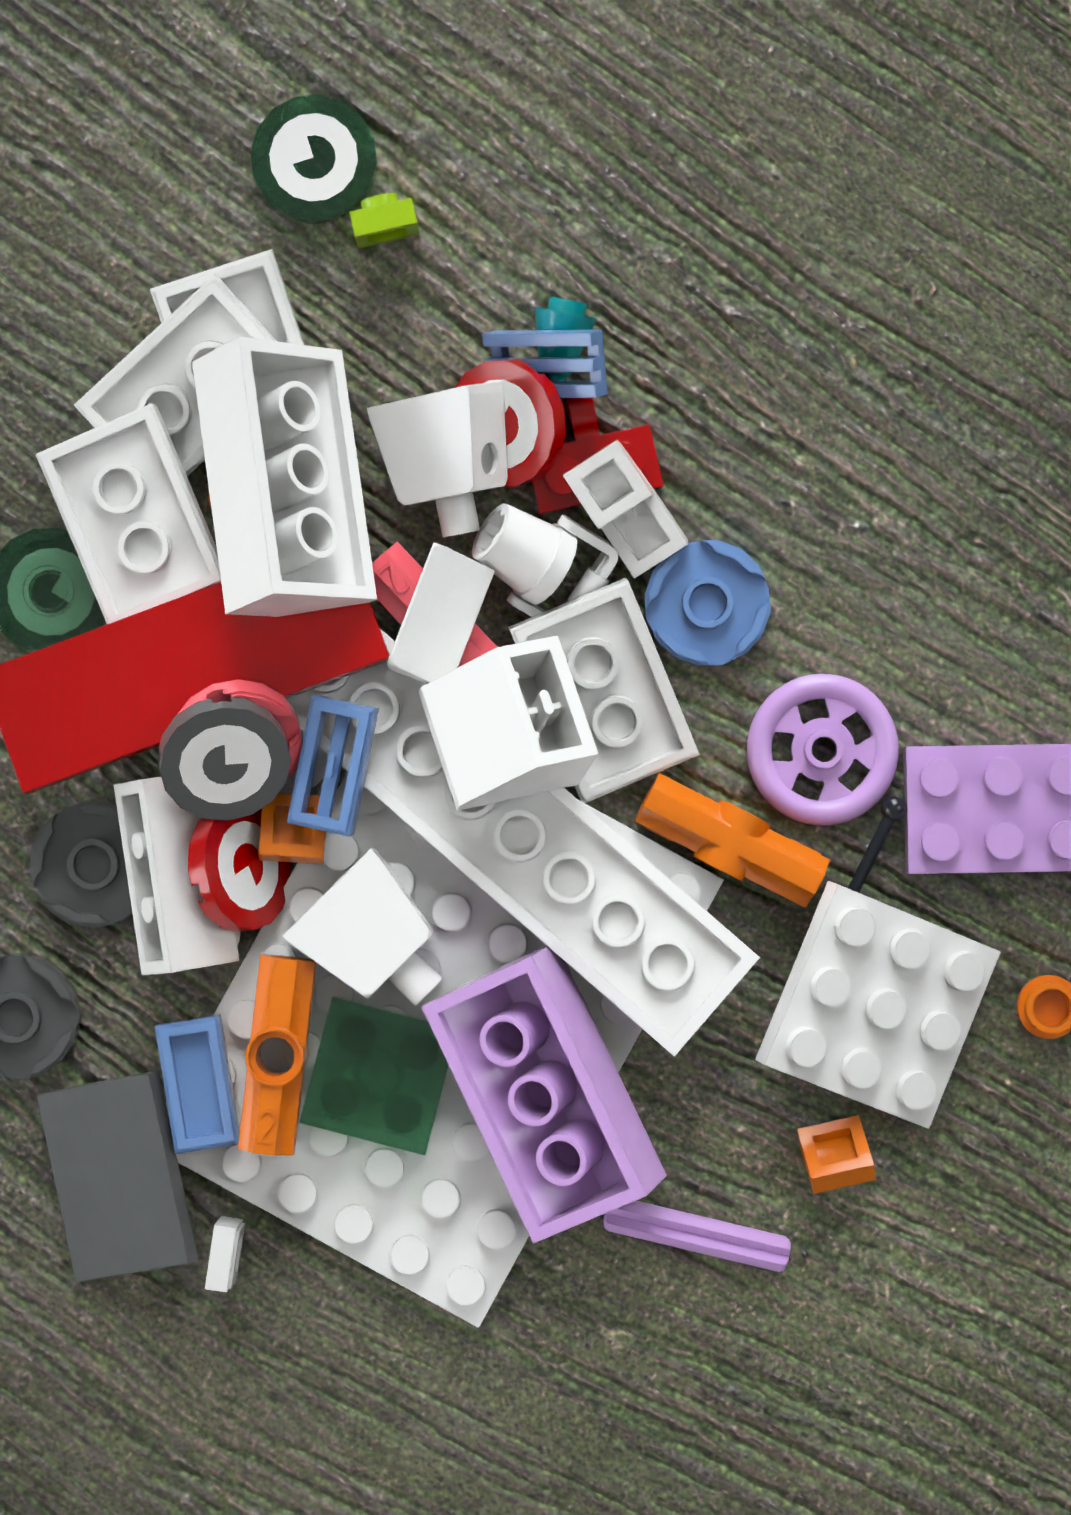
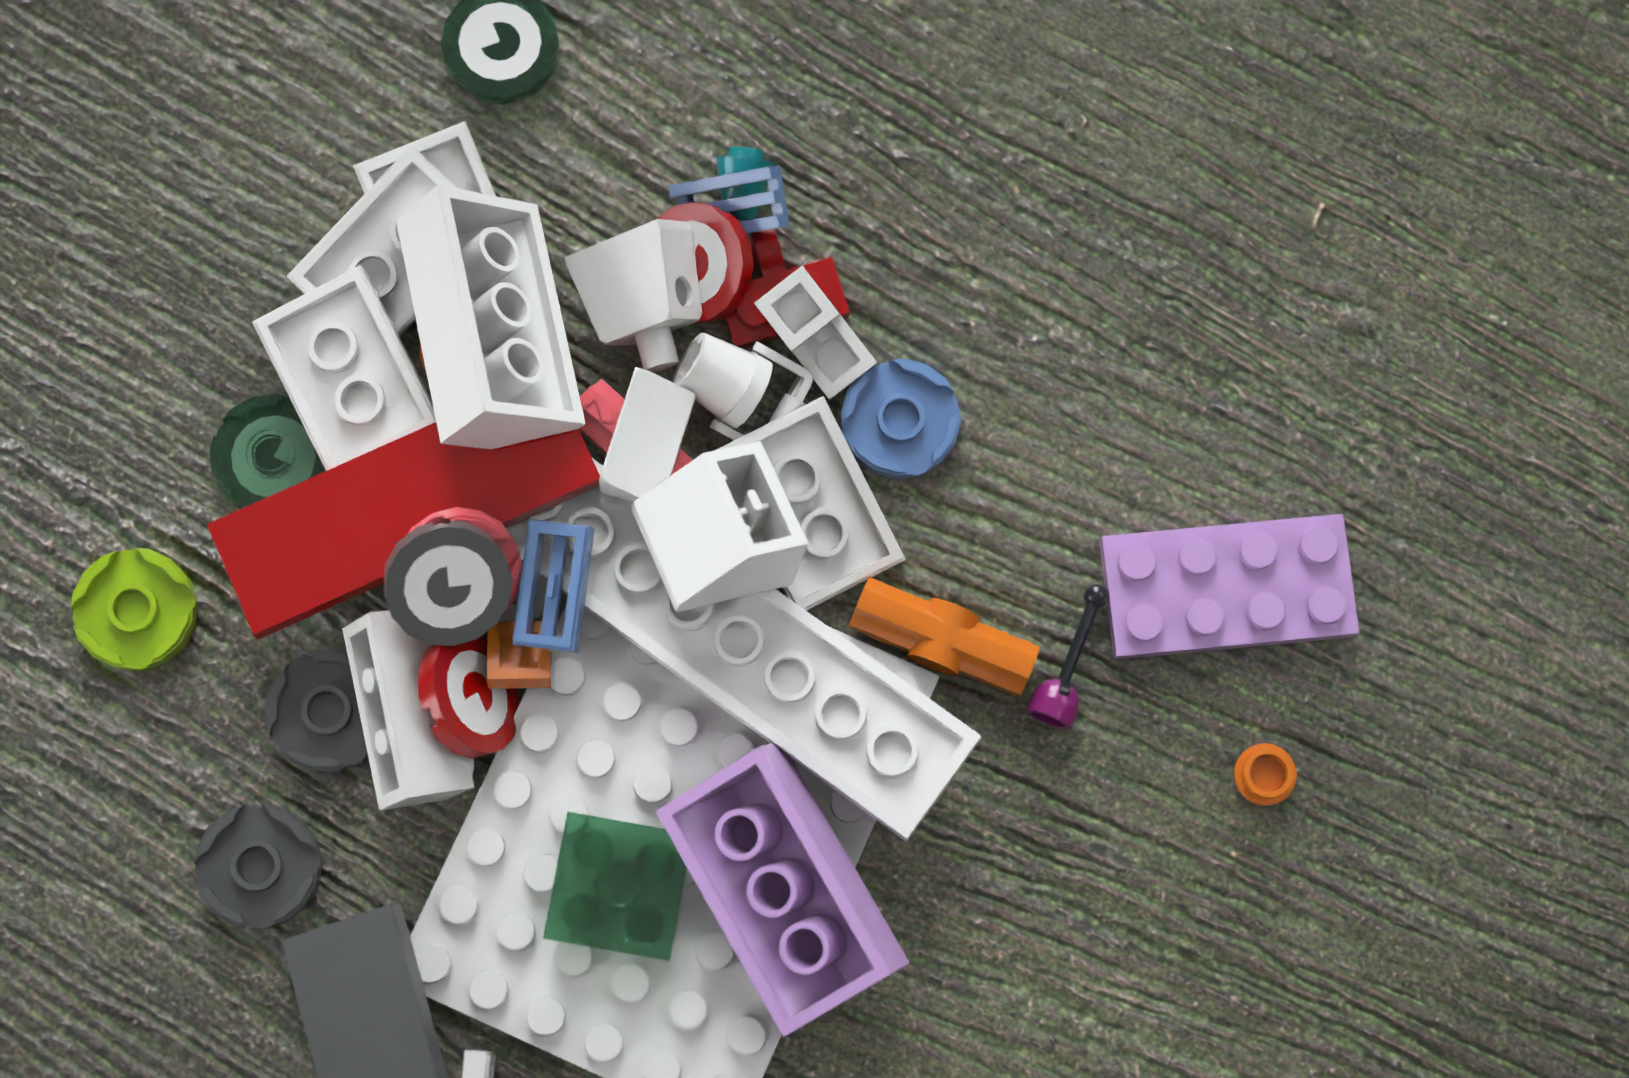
camera: 10 degrees left, 10 degrees down
(197, 1084) = (440, 912): medium blue tile -> none
(274, 1096) = (517, 829): orange piece -> none
(368, 932) = (598, 745): white torso -> none
(383, 220) = (569, 92): lime plate -> none
(700, 1235) = (944, 1026): lavender axle -> none
(781, 715) = (981, 576): lavender plate -> none
(836, 1154) = (1074, 933): orange plate -> none
(877, 1005) = (1099, 782): white plate -> none

